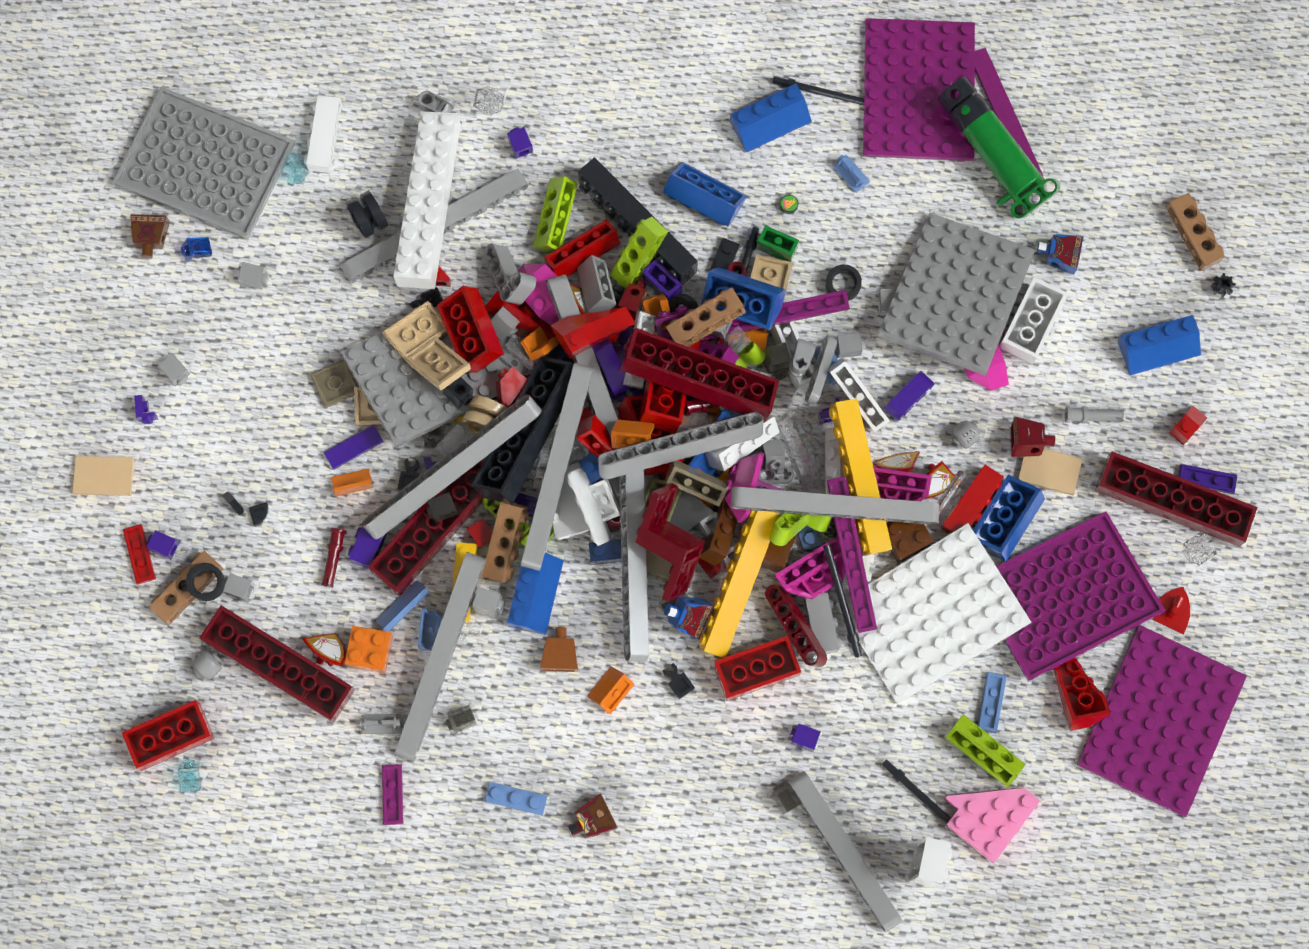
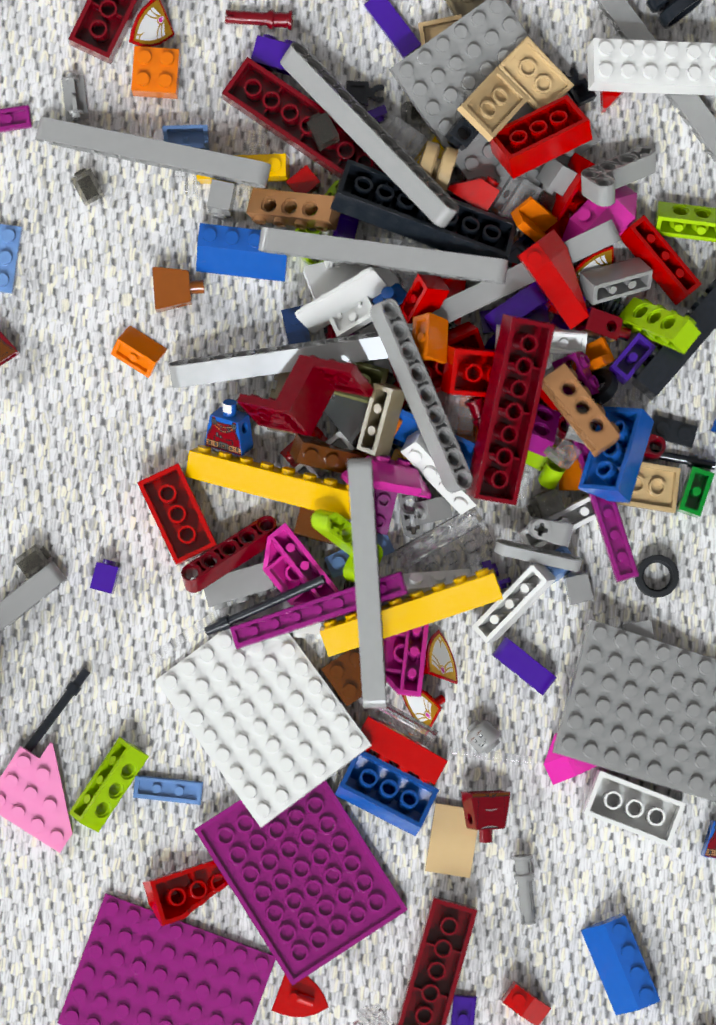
camera: 85 degrees right, 10 degrees up
(352, 482) = (350, 28): orange panel -> none
(402, 606) = (210, 104): medium blue tile -> none
(680, 683) = (152, 429): black plate -> none

